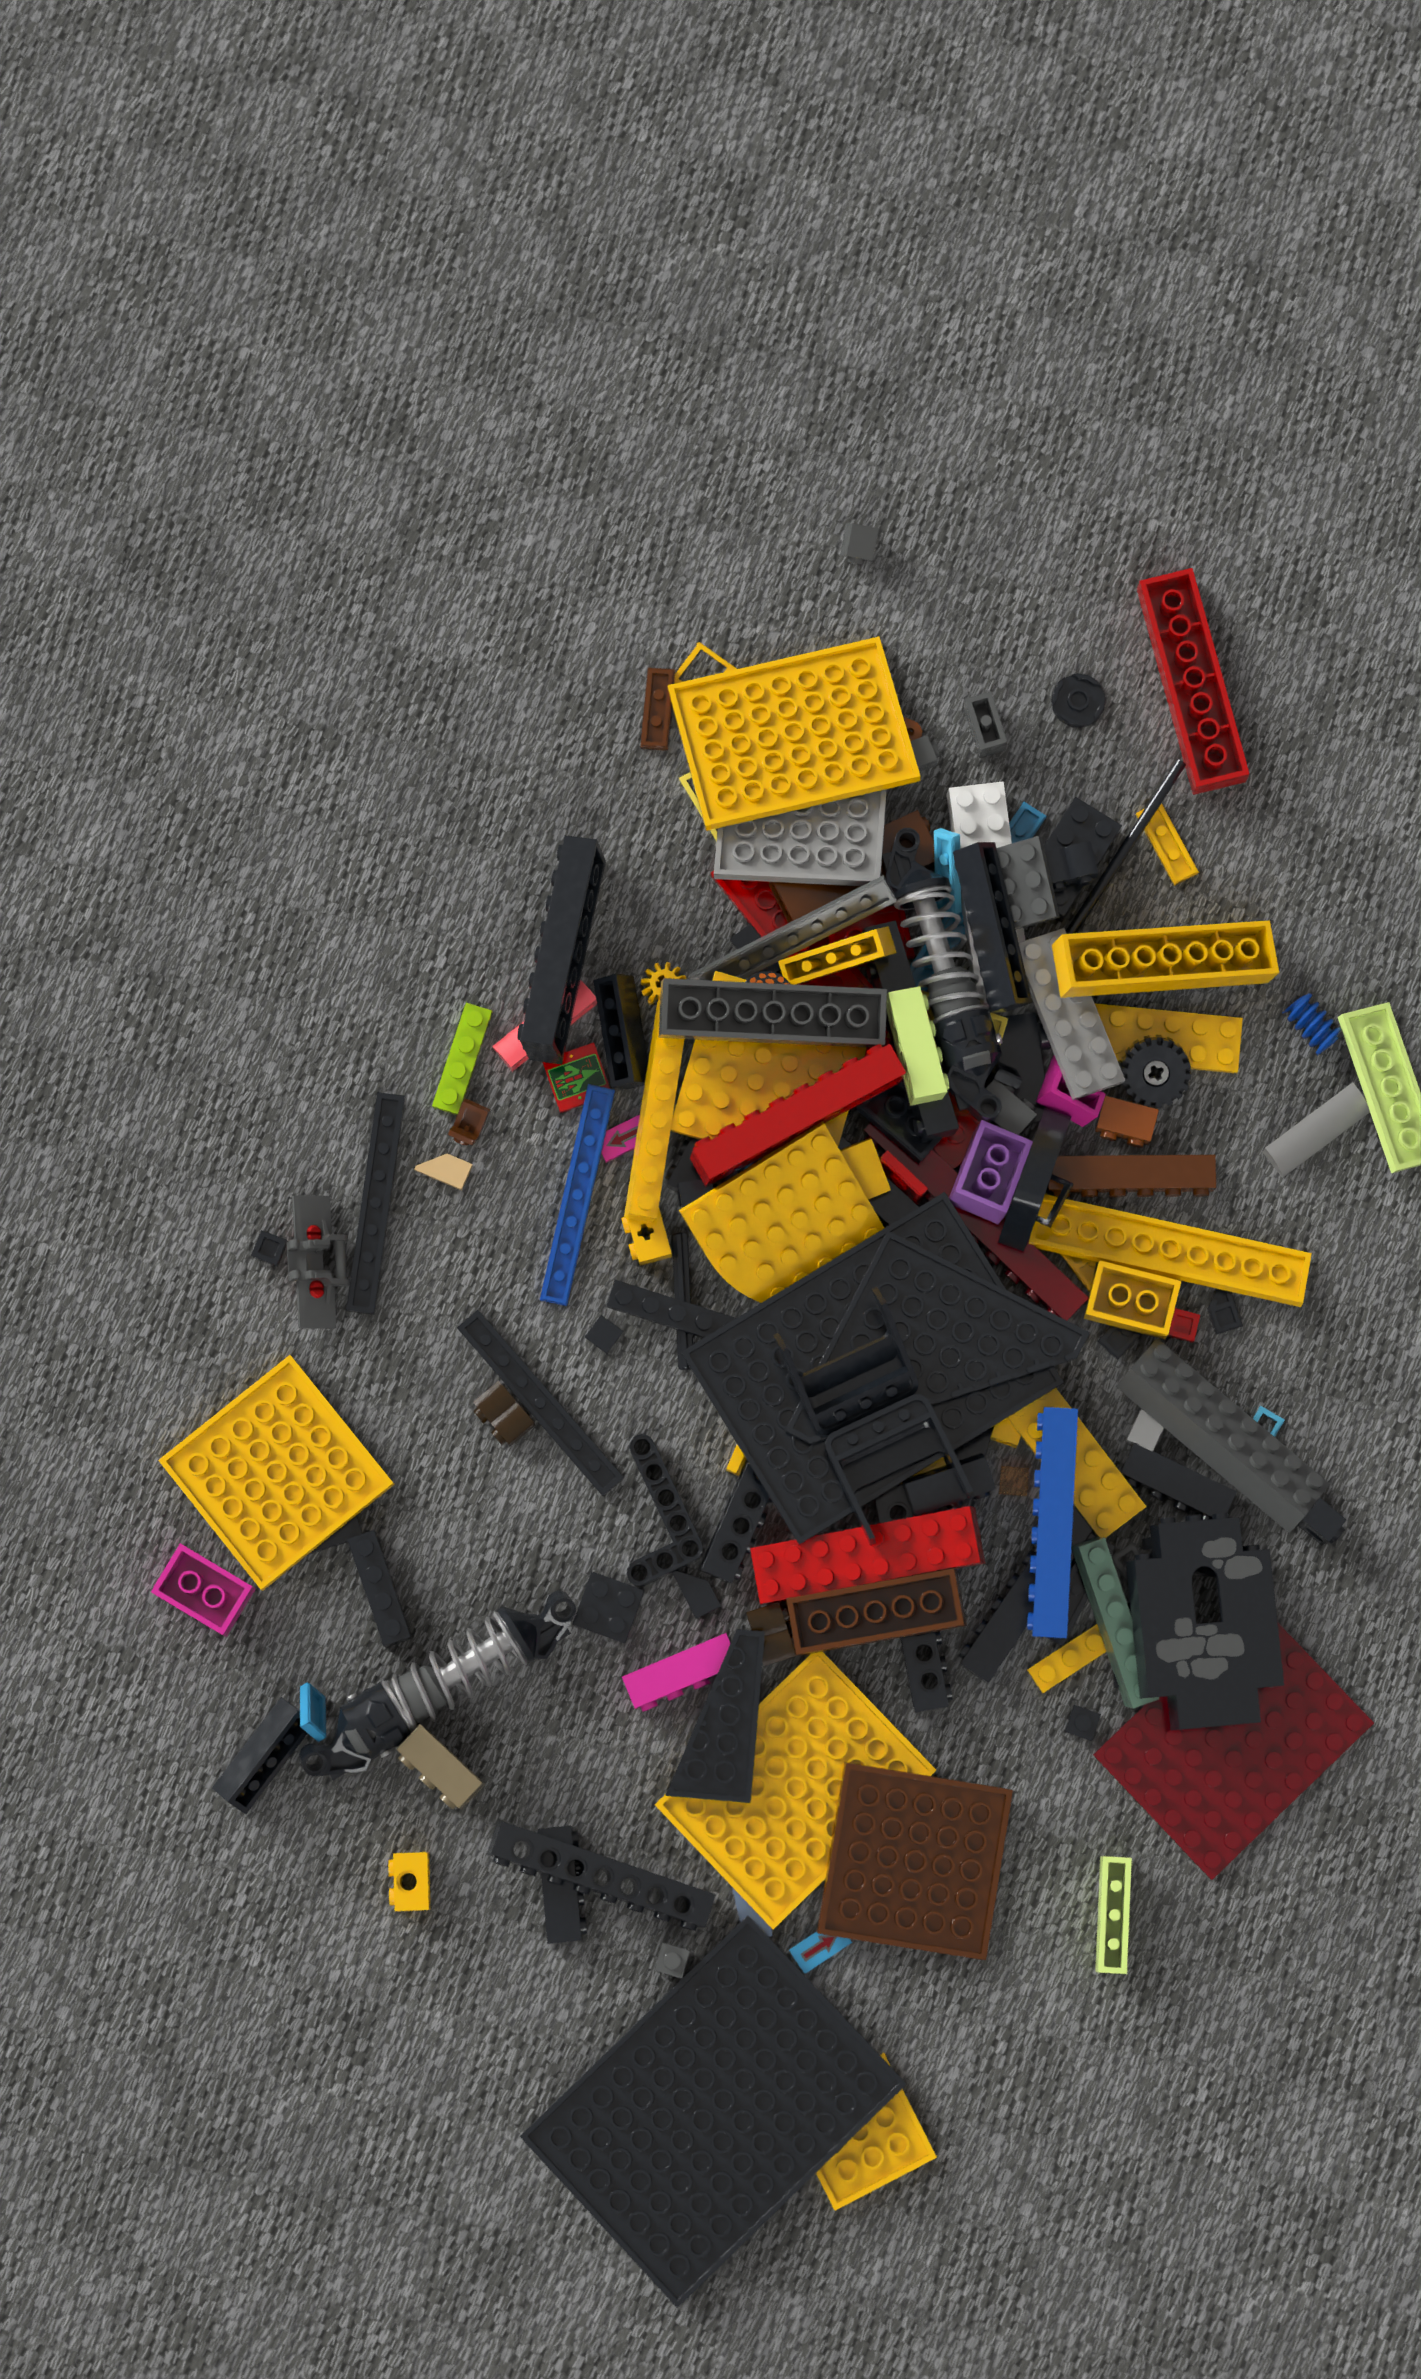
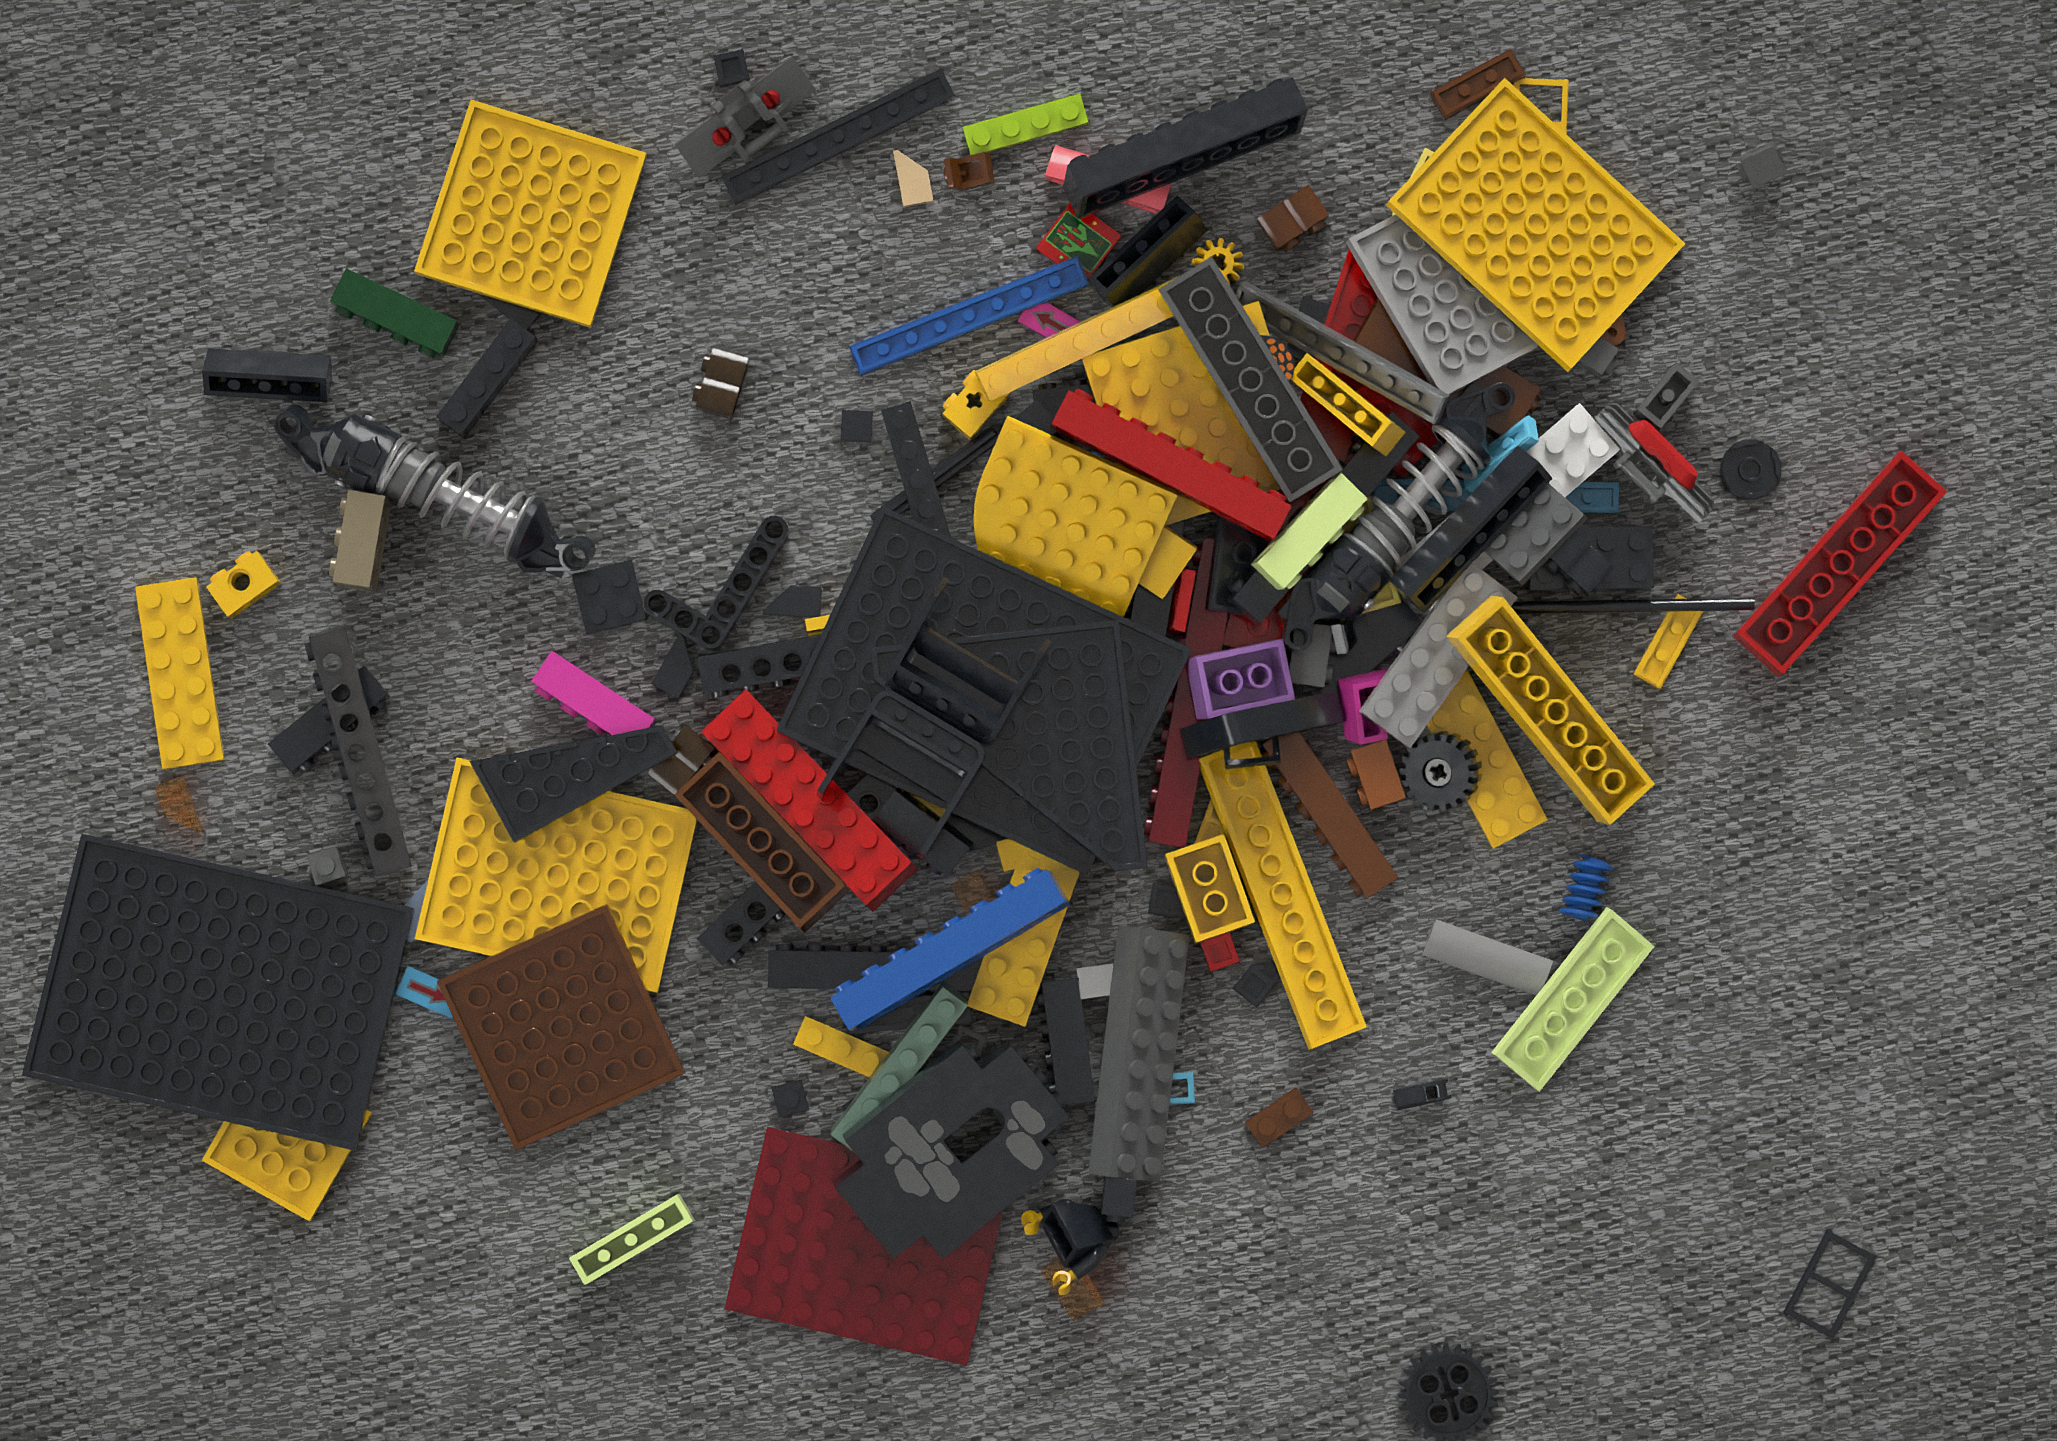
camera: 50 degrees right, 5 degrees up
(203, 1590) = (379, 220): dark pink brick -> none
(282, 1626) = (395, 313): none -> dark green brick
(313, 1712) = (335, 392): dark azure tile -> none
(446, 1977) = (179, 673): none -> yellow plate
(540, 1403) = (754, 410): black plate -> none
(545, 2045) = (178, 802): none -> clear orange tile
(667, 908) = (1293, 218): none -> reddish brown brick
(707, 1467) = (796, 602): none -> black tile
(1046, 754) = (1673, 472): none -> dark grey piece
(1329, 1572) = (1076, 1235): none -> black torso
(1336, 1363) = (1279, 1117): none -> reddish brown plate
(1364, 1602) = (1082, 1296): none -> clear orange panel
(1387, 1250) = (1416, 1094): none -> black bar

